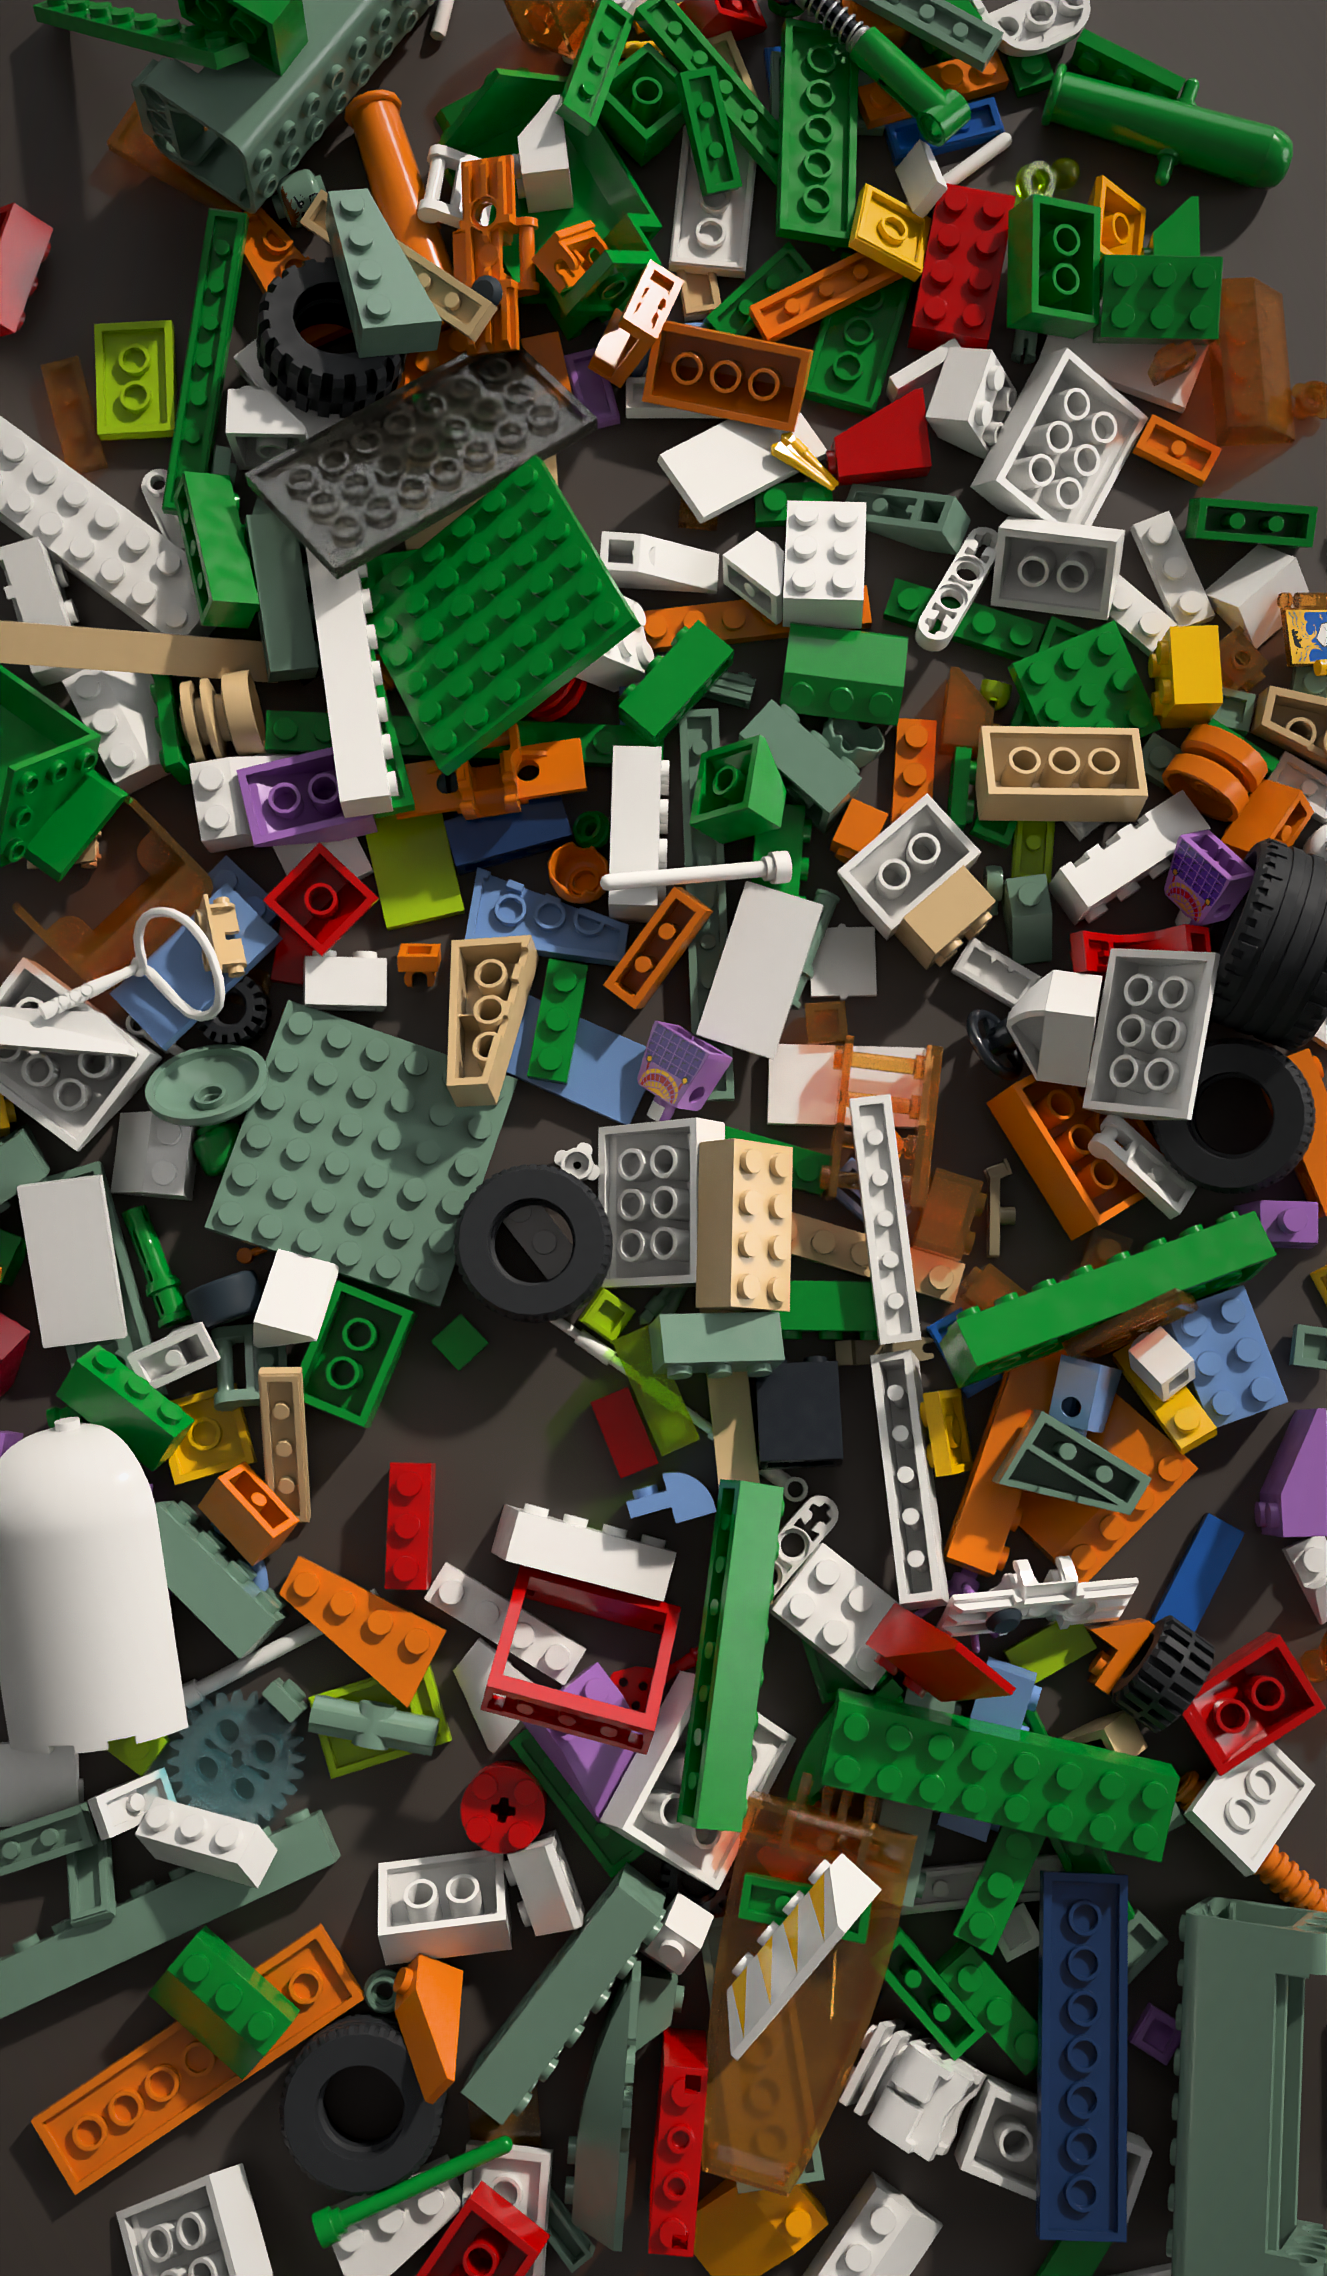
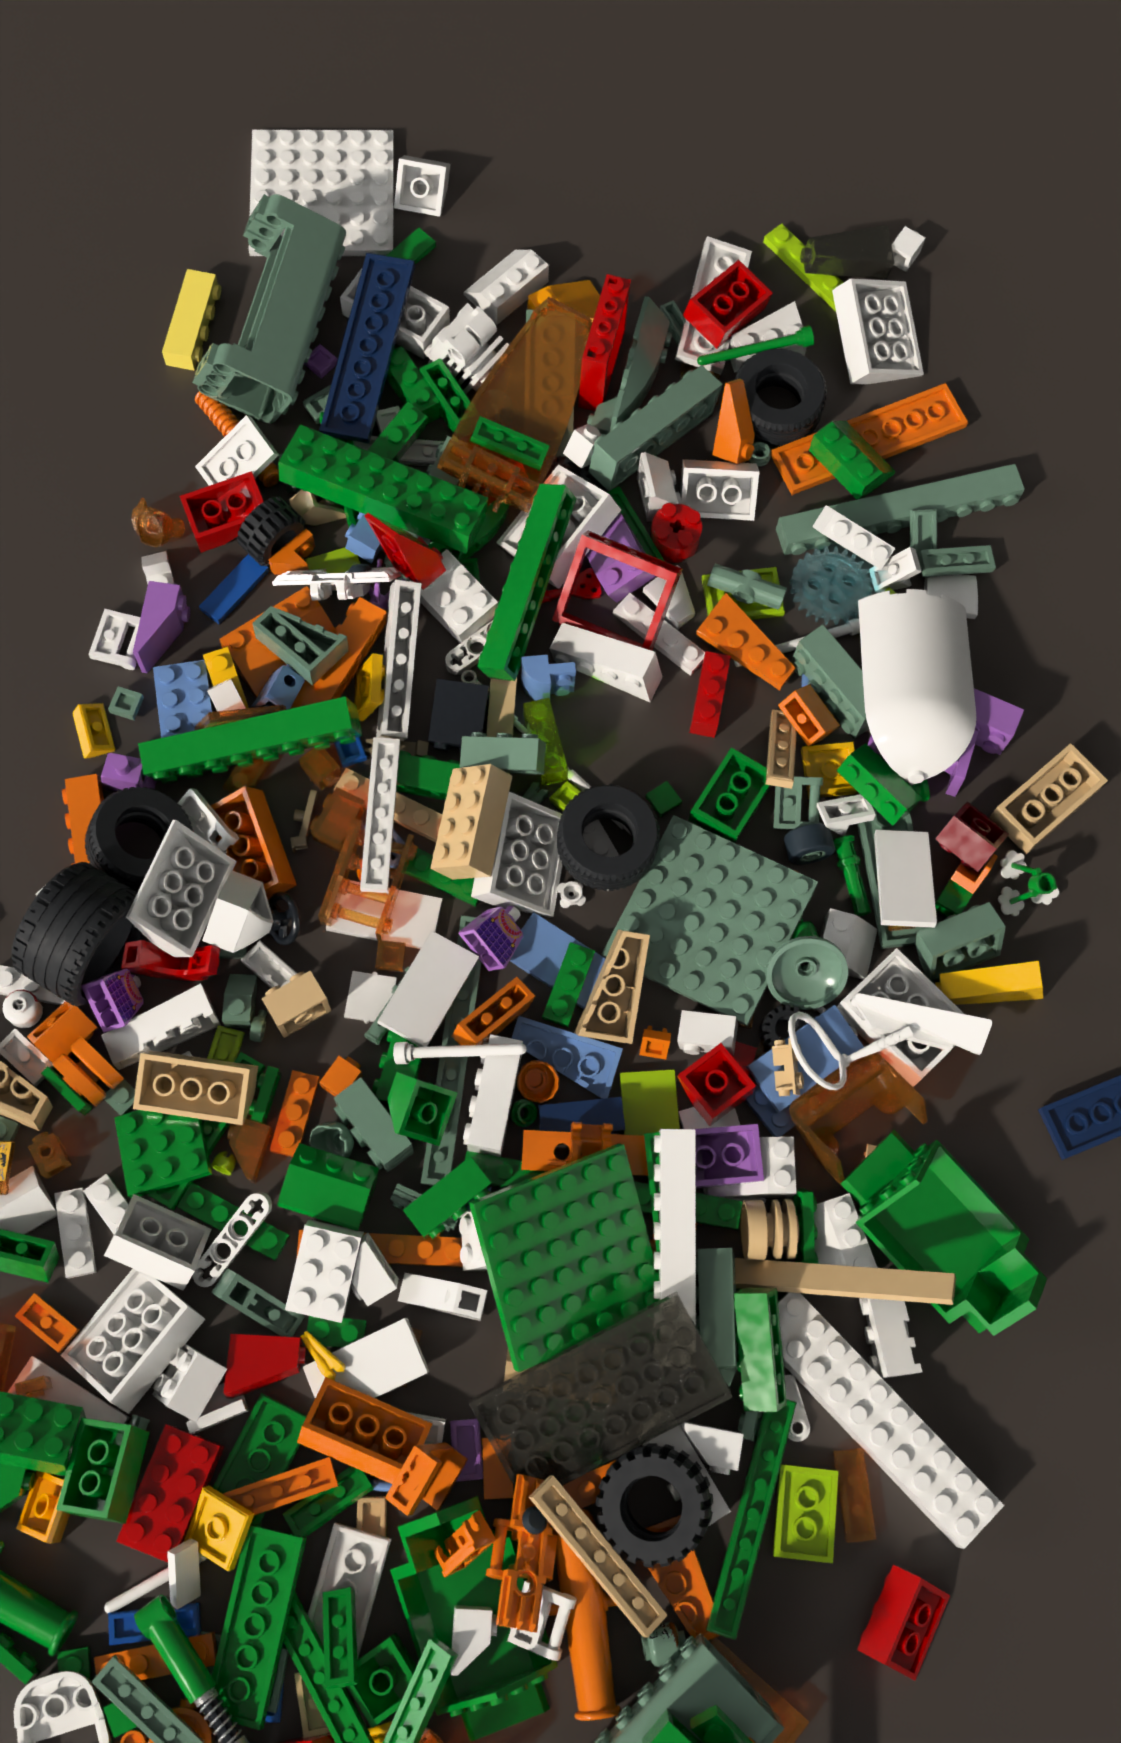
camera: 175 degrees left, 10 degrees down
(286, 1698) = (798, 612): sand green plate -> none
(294, 1300) = (764, 829): white slope -> none
(378, 284) = (616, 1529): sand green wedge -> none
(624, 1432) = (569, 728): red tile -> none
(795, 1948) = (520, 409): white slope -> none
(906, 864) = (312, 1043): white slope -> none
(1062, 175) = (93, 1563): clear neon green plate -> none
(1186, 676) = (88, 1143): yellow brick -> none
(1236, 710) = (62, 1121): sand green plate -> none

